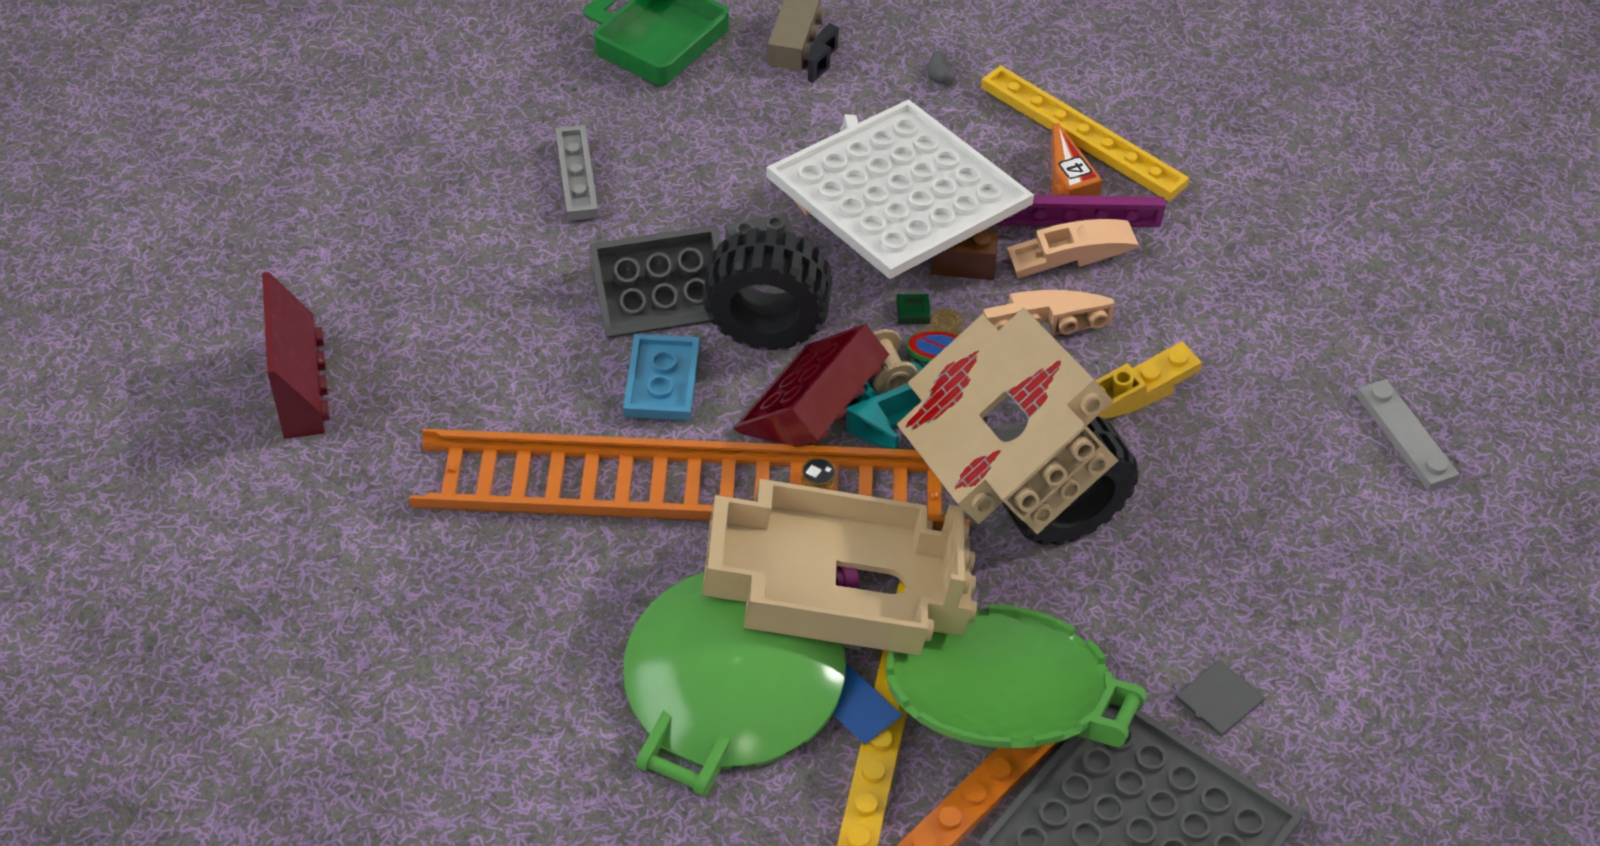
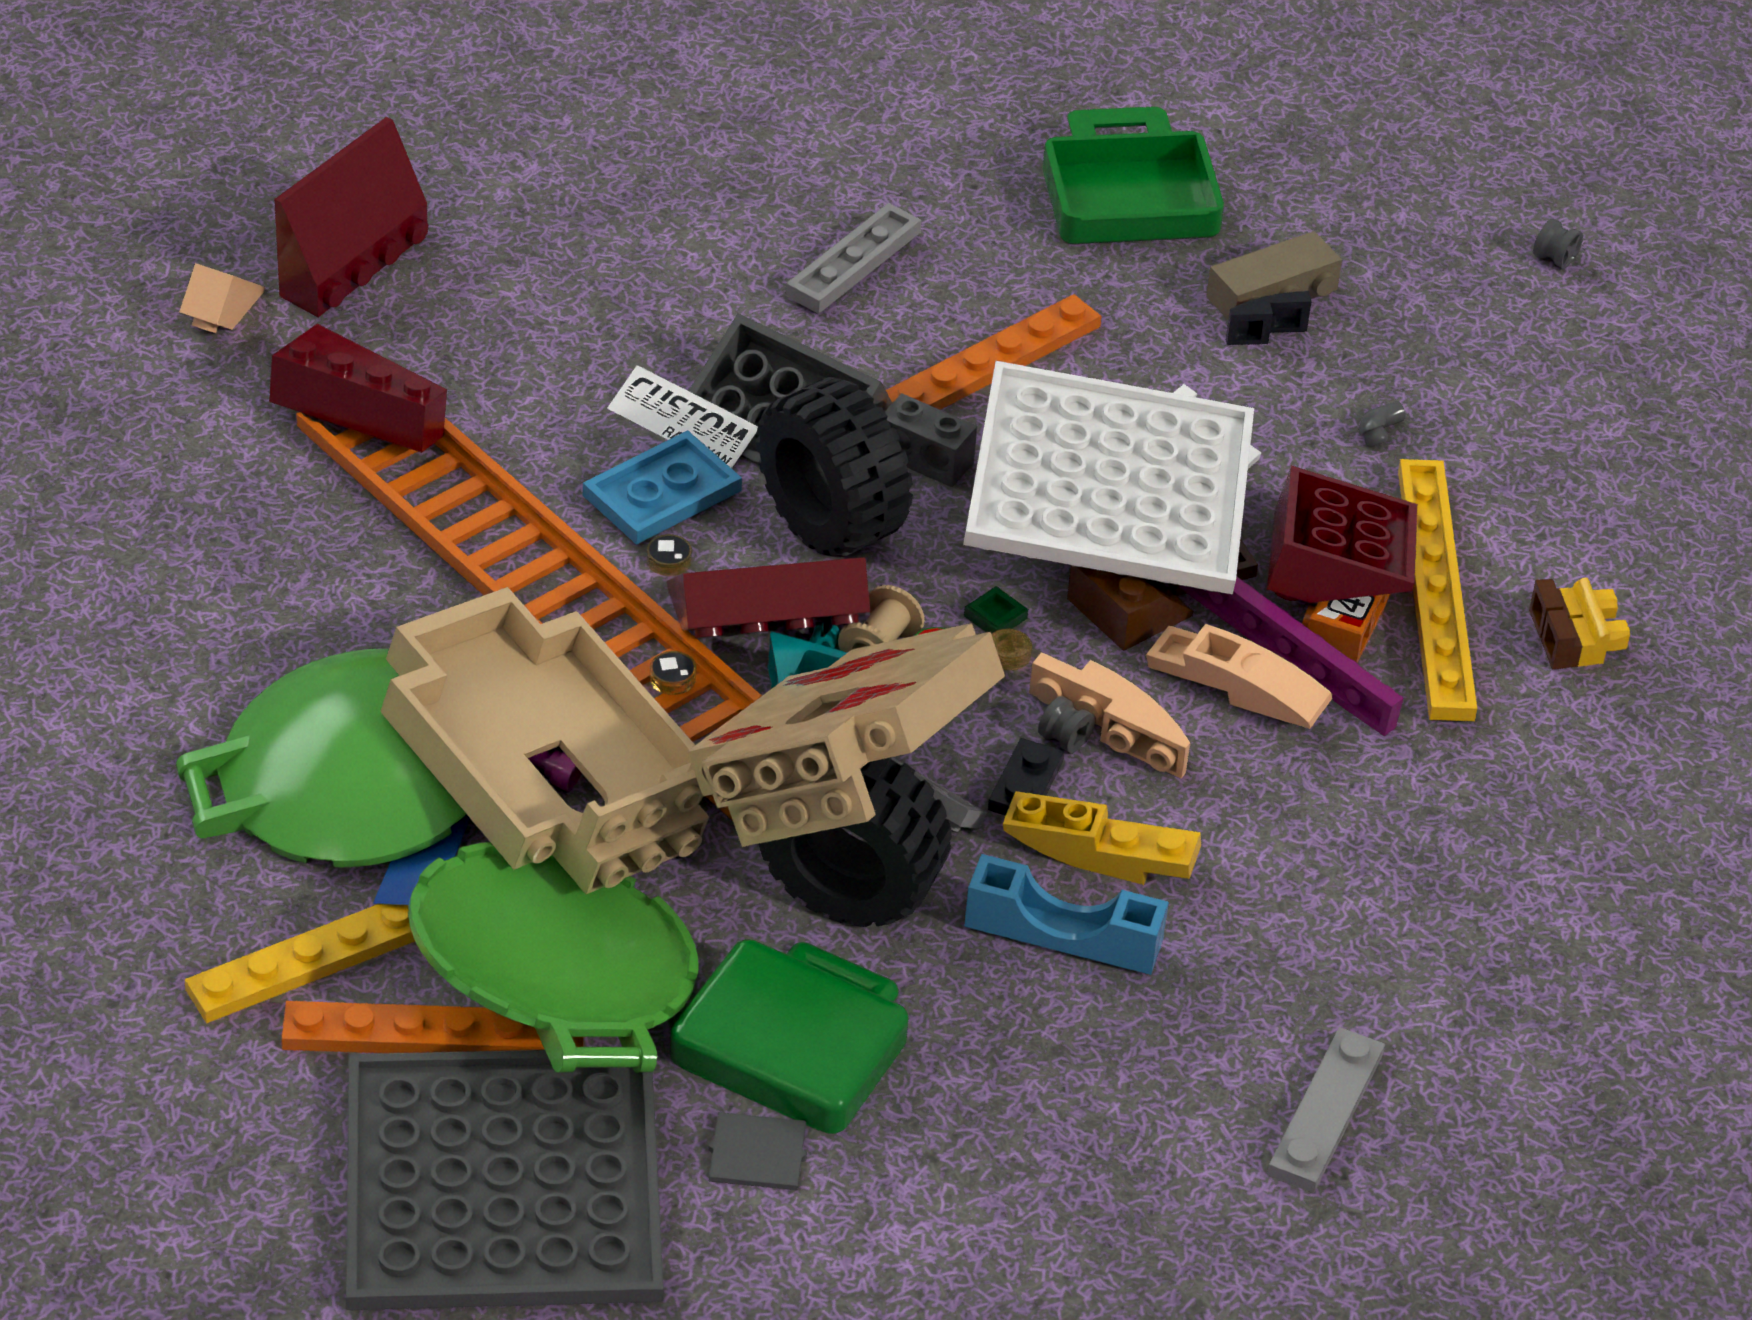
camera: 45 degrees right, 5 degrees down
(262, 467) = (218, 298): none -> light nougat slope
(433, 453) = (357, 389): none -> dark red wedge
(611, 328) = (673, 410): none -> white sticker
(716, 412) = (669, 555): none -> tile
(719, 170) = (1017, 345): none -> orange plate
(1032, 140) = (1340, 541): none -> dark red slope
(1152, 614) = (793, 1031): none -> green piece
(1163, 102) = (1575, 623): none -> hips
(1215, 425) = (1013, 905): none -> dark azure arch

